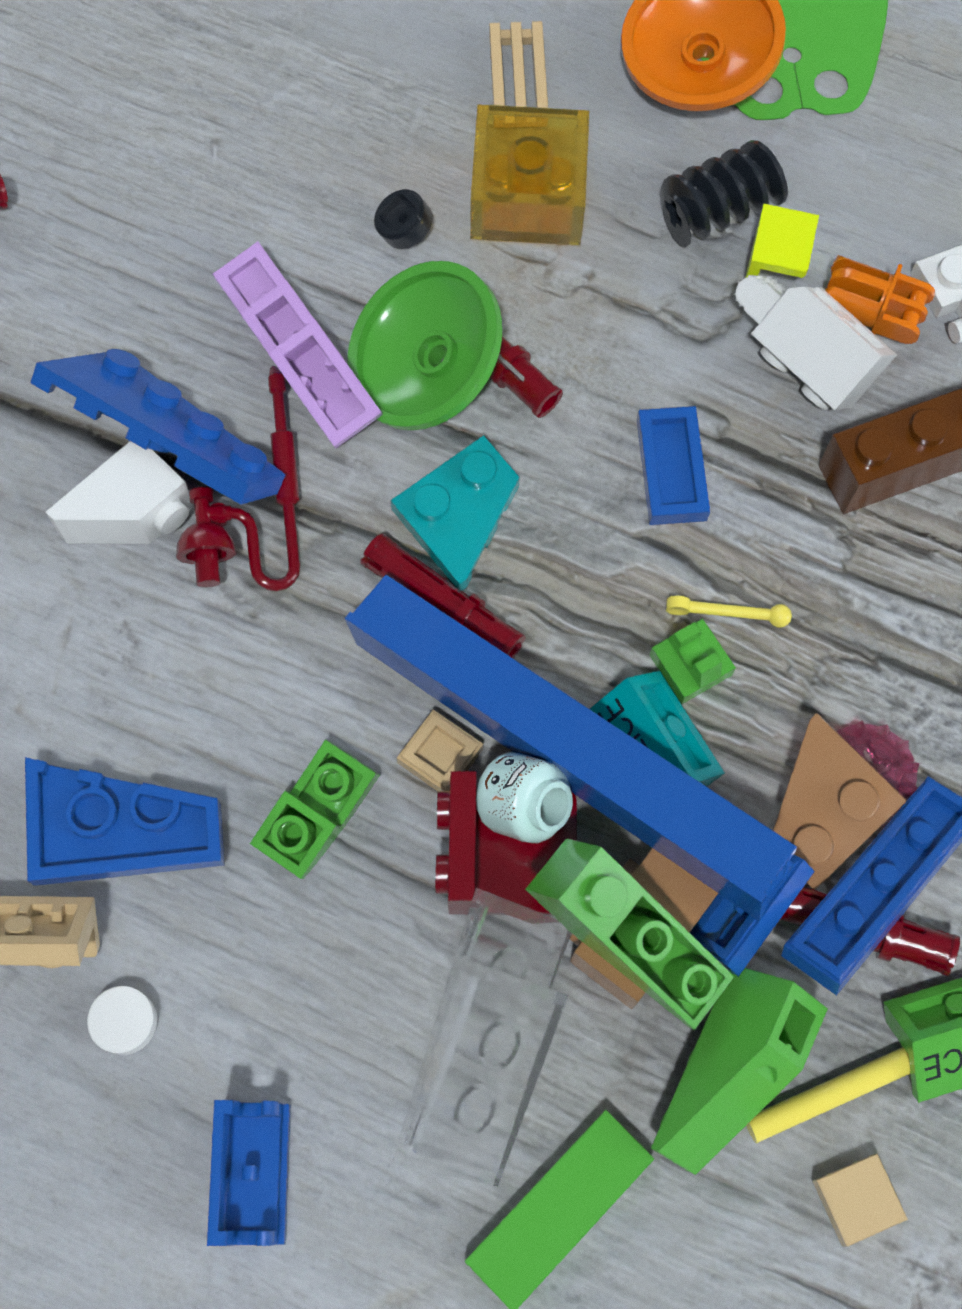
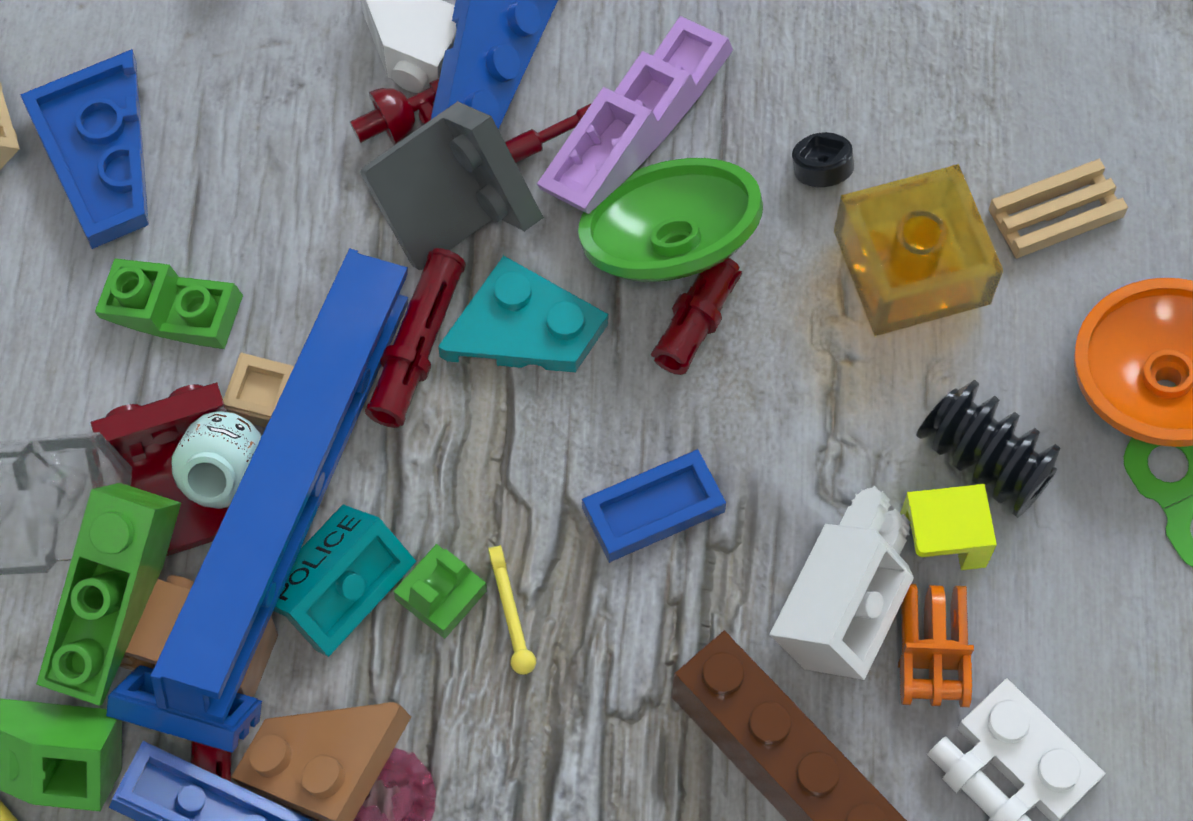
camera: 70 degrees right, 5 degrees down
(301, 504) = (449, 183): none -> dark grey bracket

